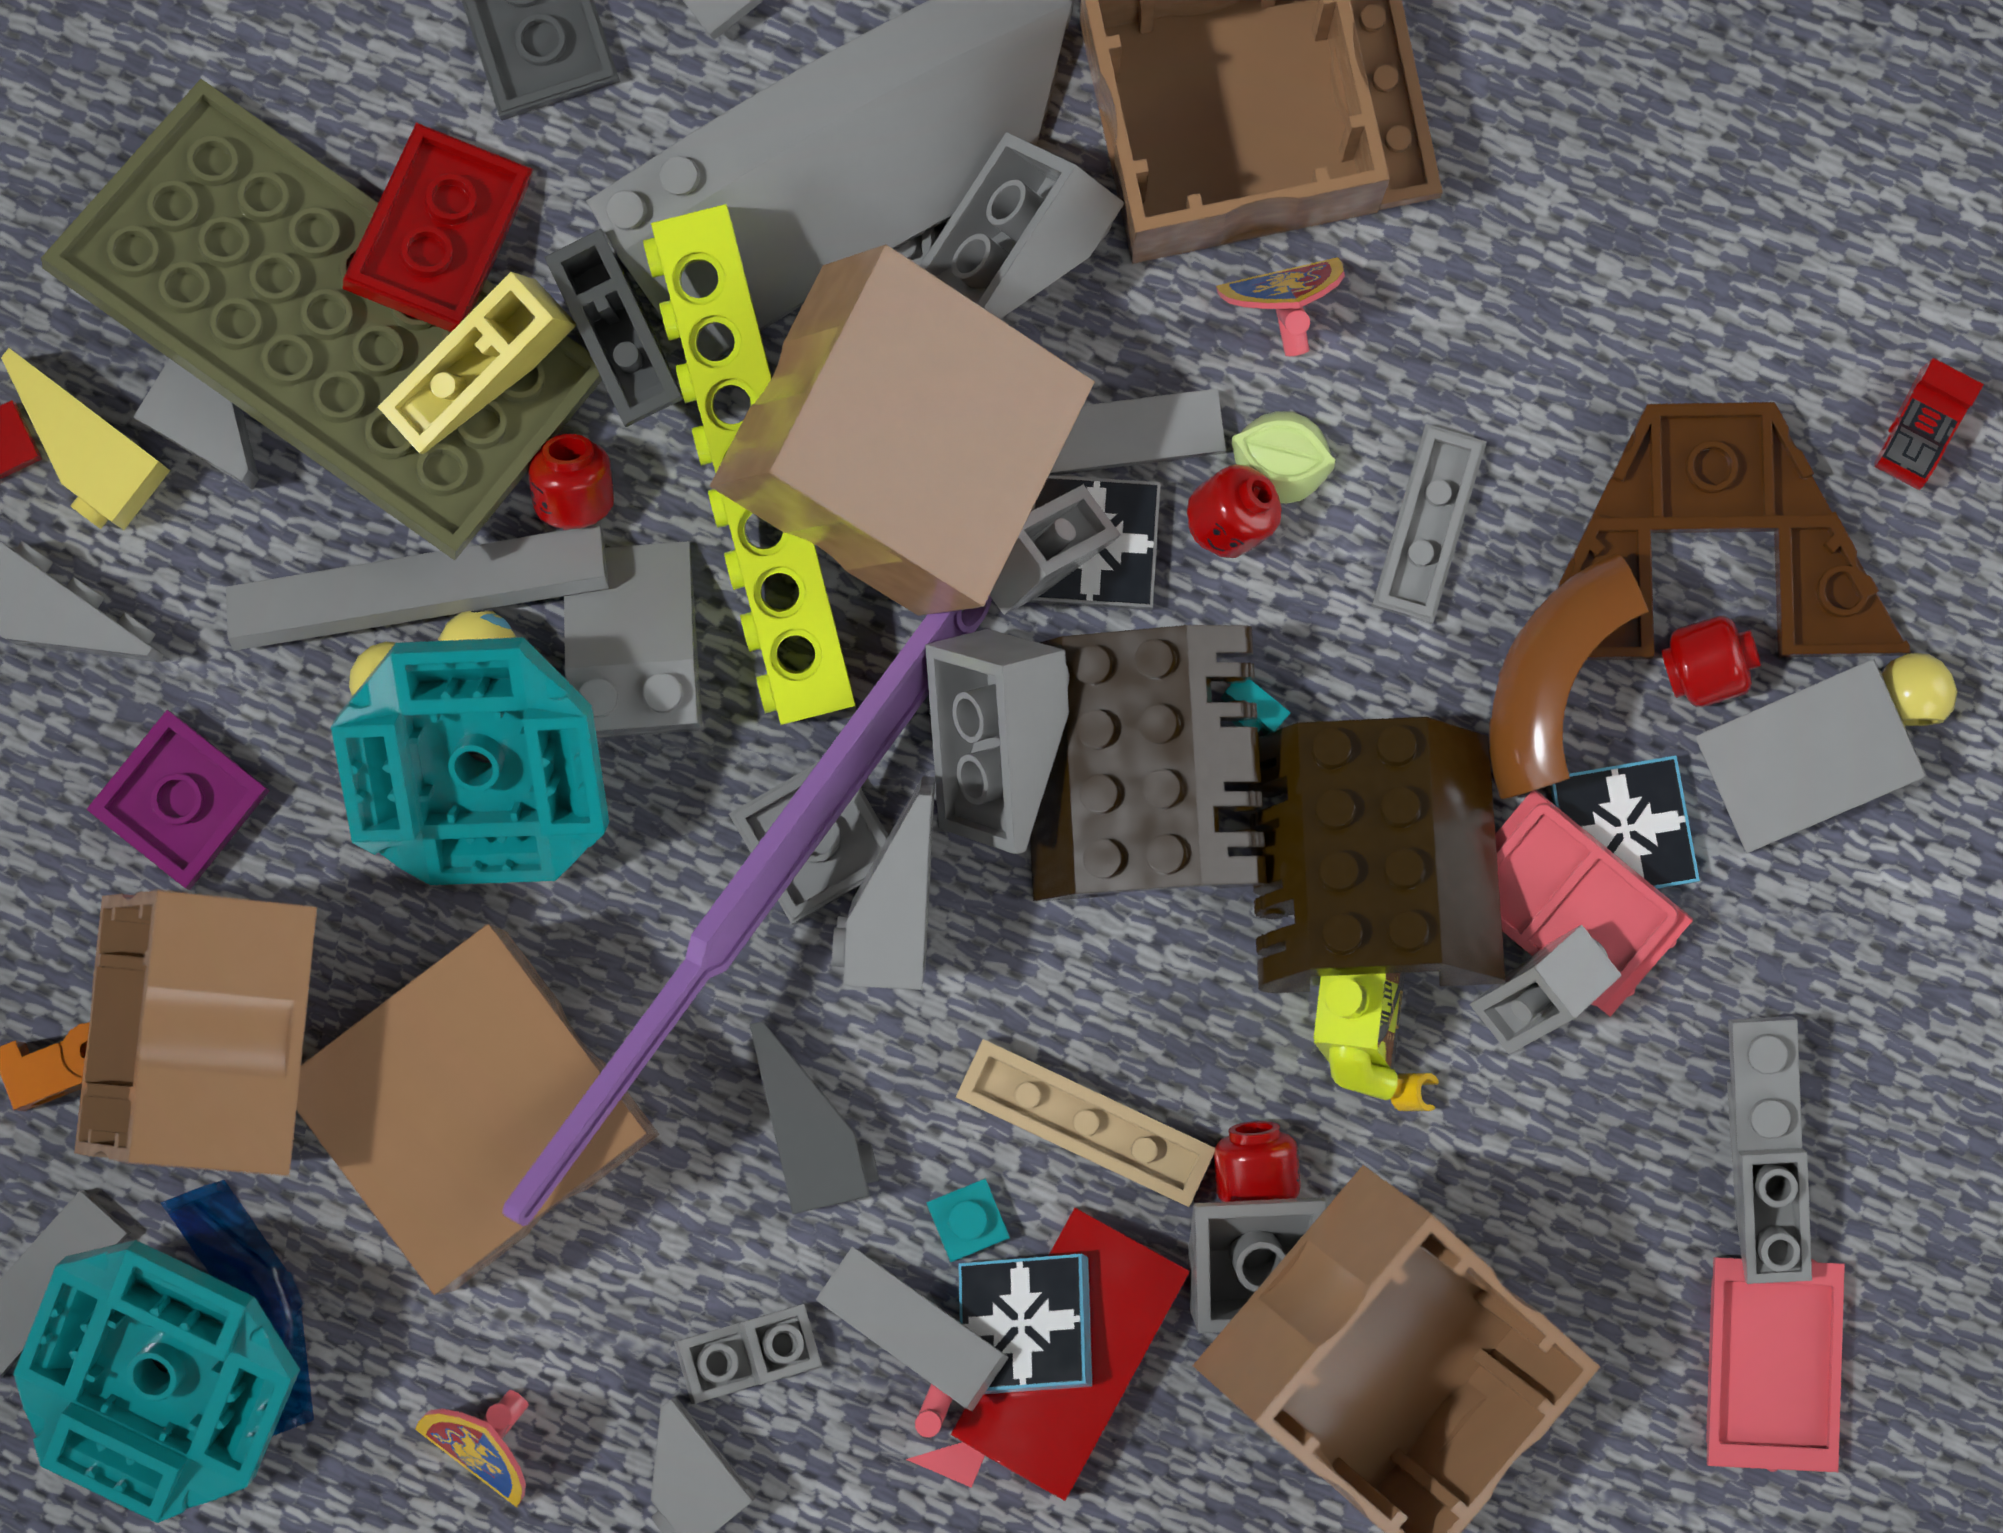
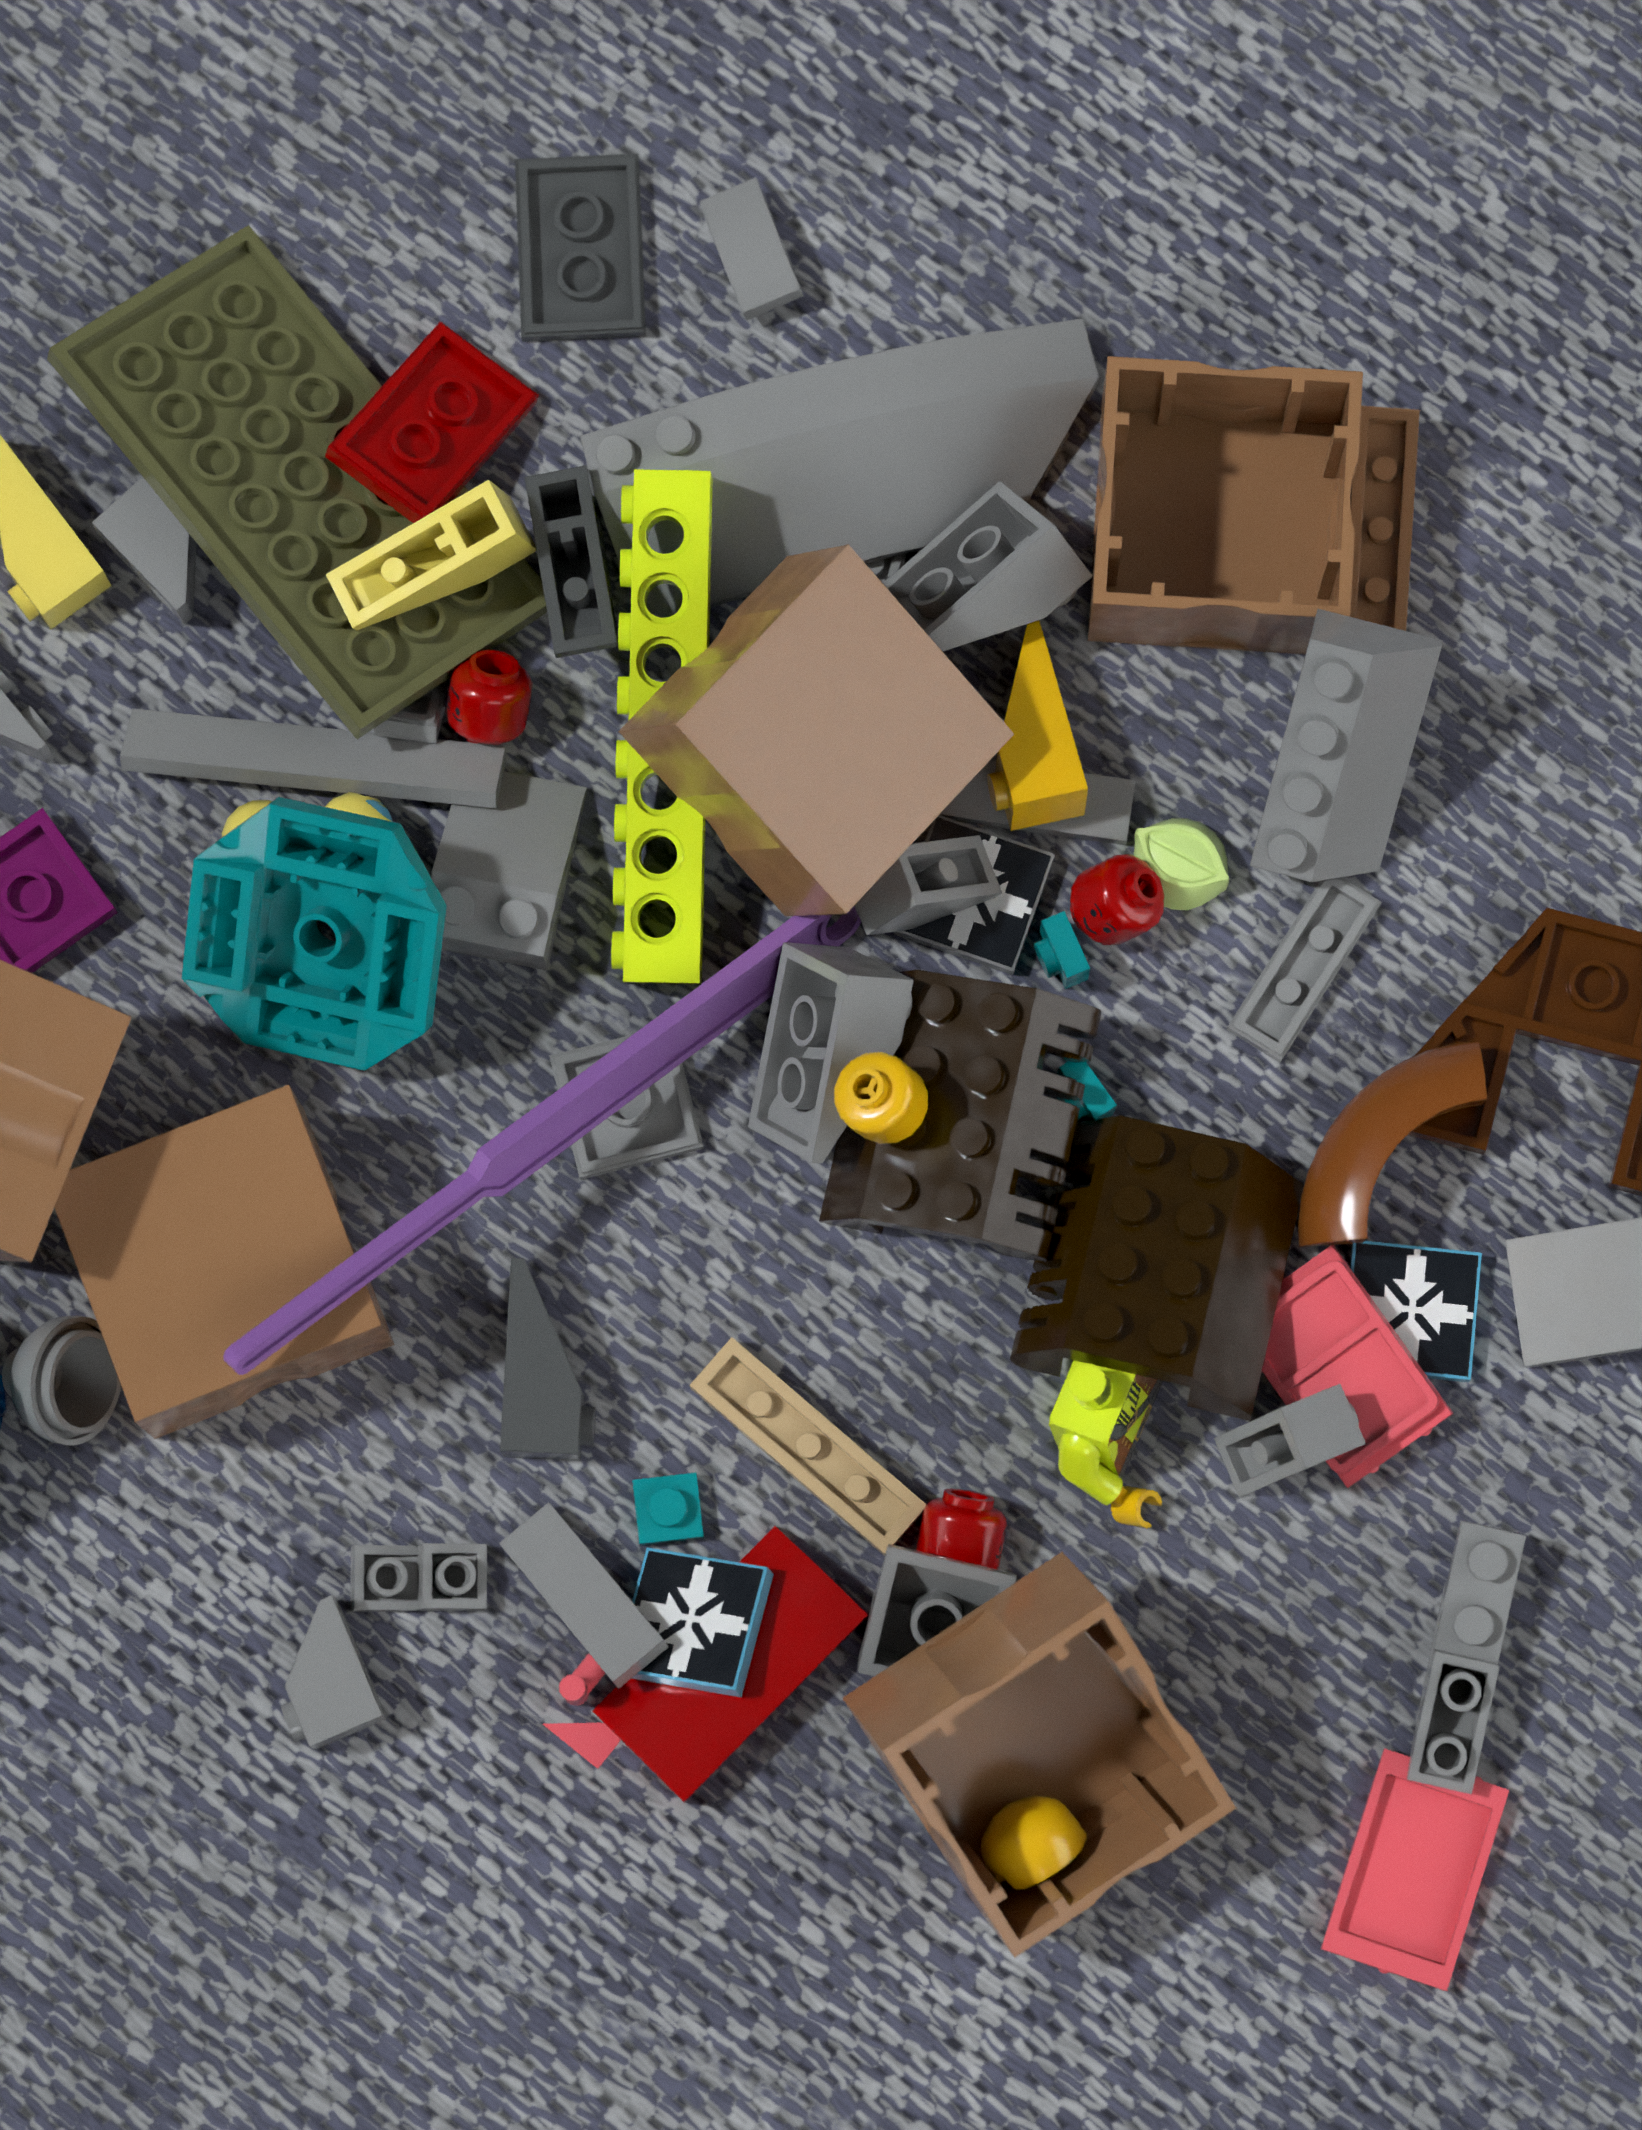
camera: 15 degrees right, 5 degrees down
(349, 1265) = (63, 1380): none -> light grey piece
(479, 1443) = (136, 1587): shield -> none
(509, 522) = (418, 720): none -> light grey tile
(888, 918) = (675, 1191): light grey slope -> none
(1066, 775) = (881, 1097): none -> yellow head
(1127, 405) = (1039, 767): none -> yellow slope
(1193, 576) = (1061, 951): none -> teal plate
(1287, 293) = (1226, 705): shield -> none
(1409, 1448) = (1031, 1841): none -> yellow hair
(1414, 305) = (1345, 749): none -> light grey slope
(1710, 661) = (1539, 1171): red head -> none

